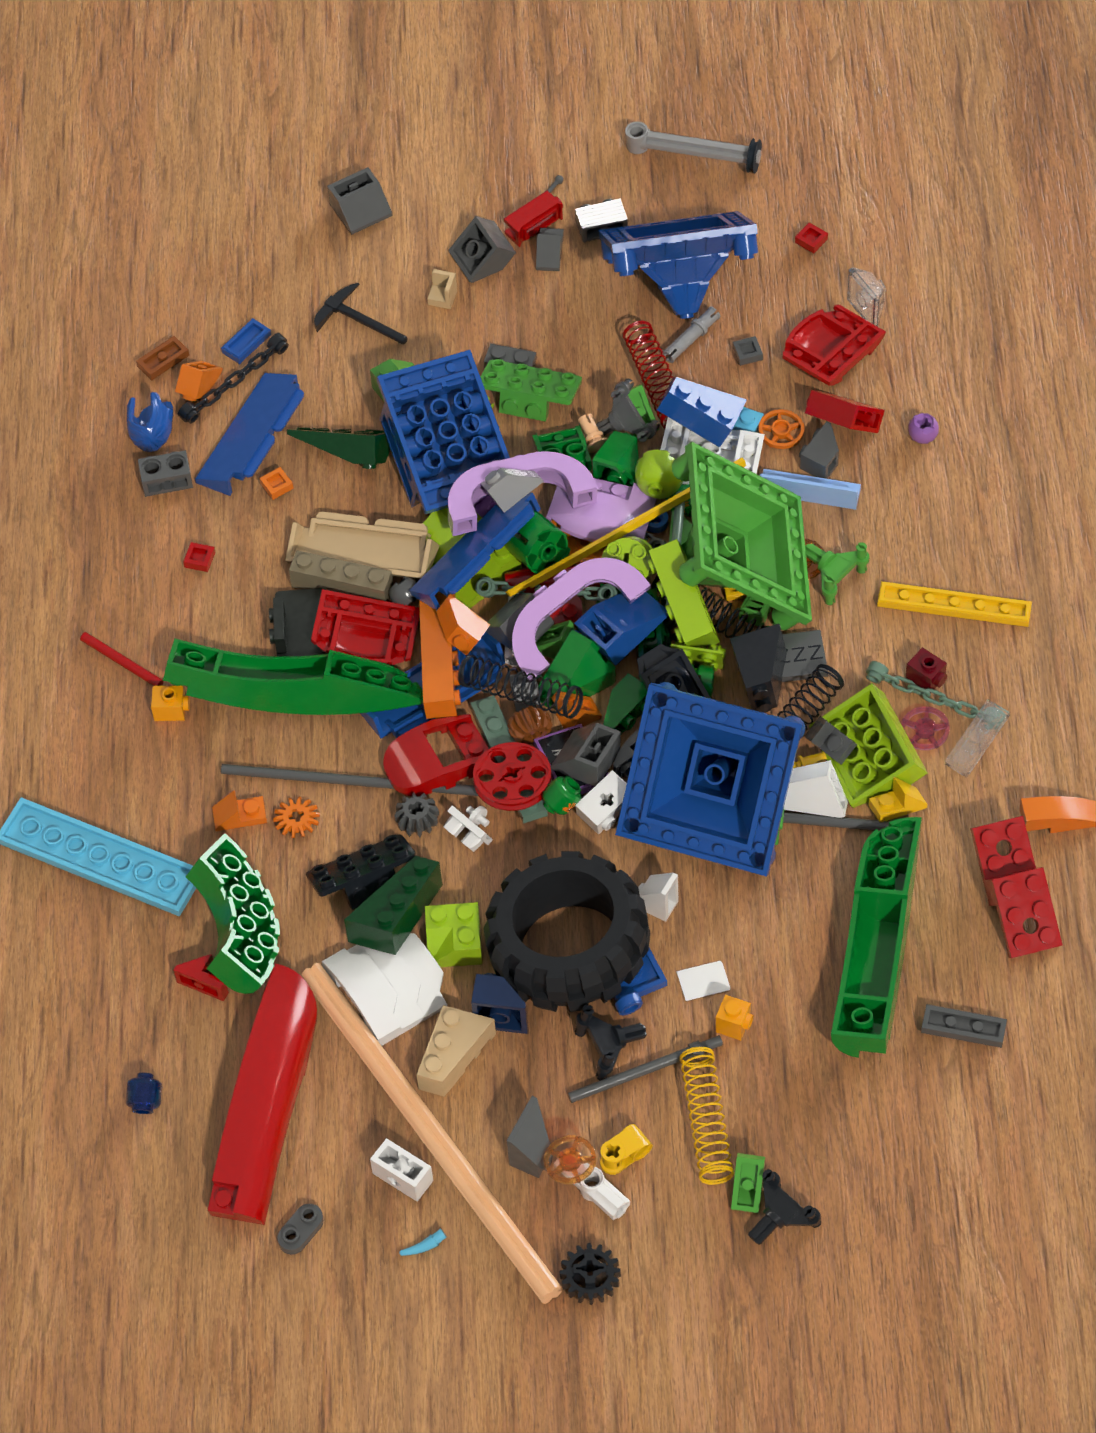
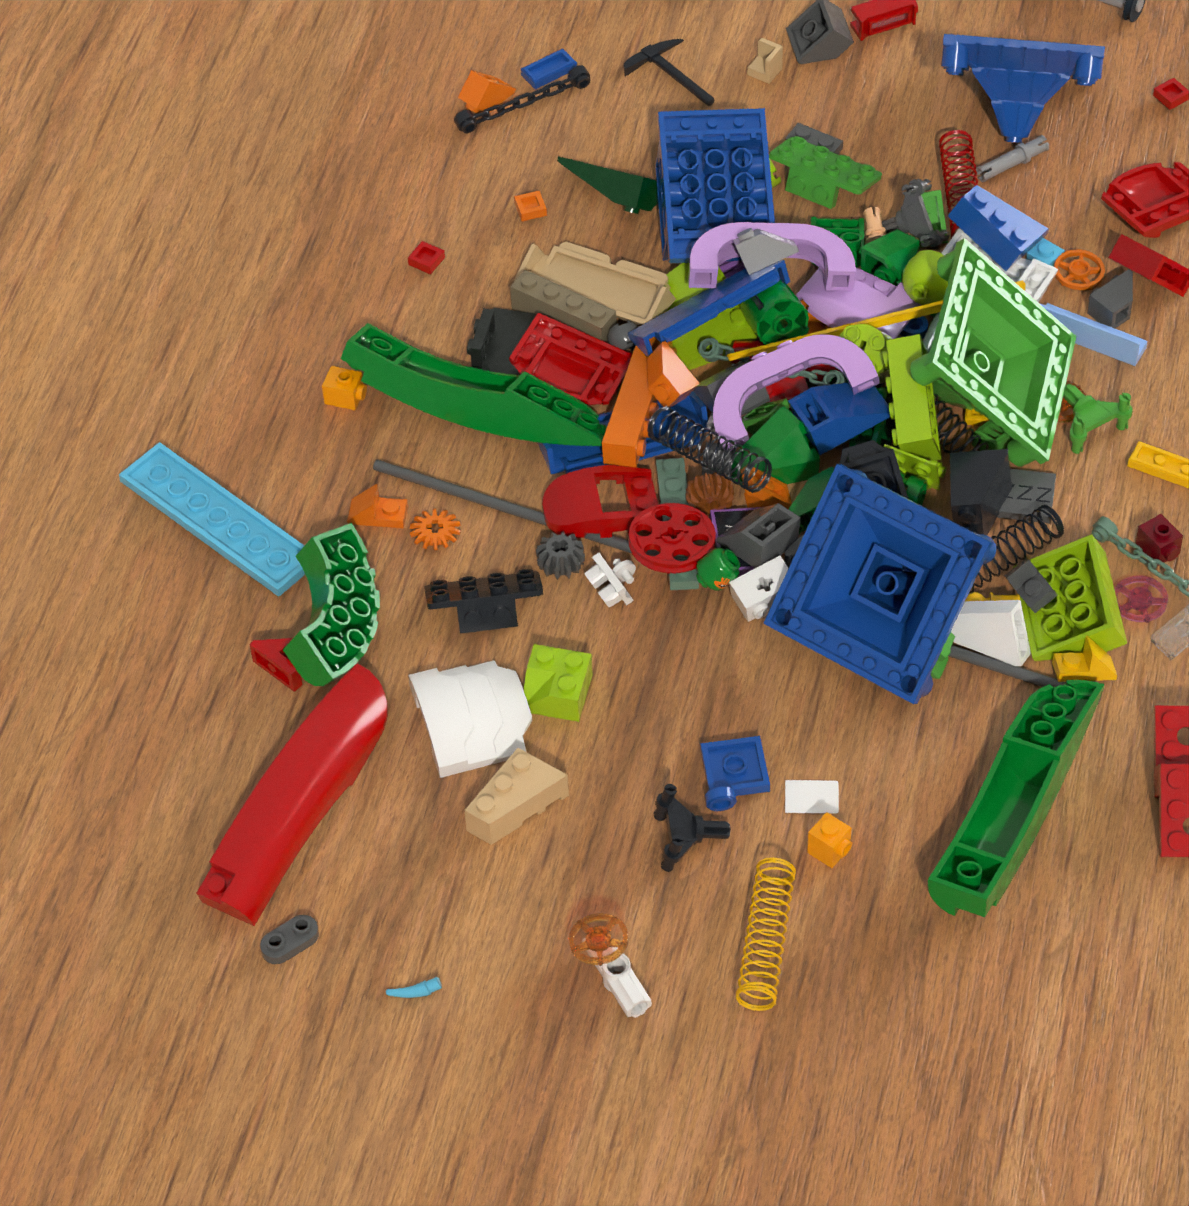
camera: 15 degrees right, 5 degrees down
(121, 660) = (310, 336): red bar -> none
(143, 1093) = (175, 760): clear blue head -> none
(152, 426) = (425, 126): blue hair -> none
(162, 358) = (458, 65): dark orange plate -> none
(165, 473) = (420, 171): dark grey brick -> none
(252, 432) = (522, 152): blue slope -> none
(396, 907) = (502, 638): dark green wedge -> none
(401, 1169) = (415, 904): white brick -> none
(433, 1134) = (464, 883): light nougat axle -> none
(498, 1000) = (576, 755): dark blue slope -> none
(529, 1141) = (560, 908): dark grey slope -> none
(549, 249) = (890, 48): dark grey slope -> none
(556, 885) = (664, 658): black tyre -> none
(577, 1274) = (582, 1066): black gear -> none
(599, 217) = (951, 23): brick -> none
(624, 1150) = (666, 944): yellow piece -> none
(642, 1070) = (712, 870): dark grey bar -> none
(660, 894) = (790, 696): white slope -> none
(747, 350) = (1067, 186): dark grey plate -> none
(748, 1183) = (788, 1015): bright green slope -> none
(781, 1210) = (815, 1053): black axle -> none
(964, 1026) = (1084, 913): dark grey plate -> none

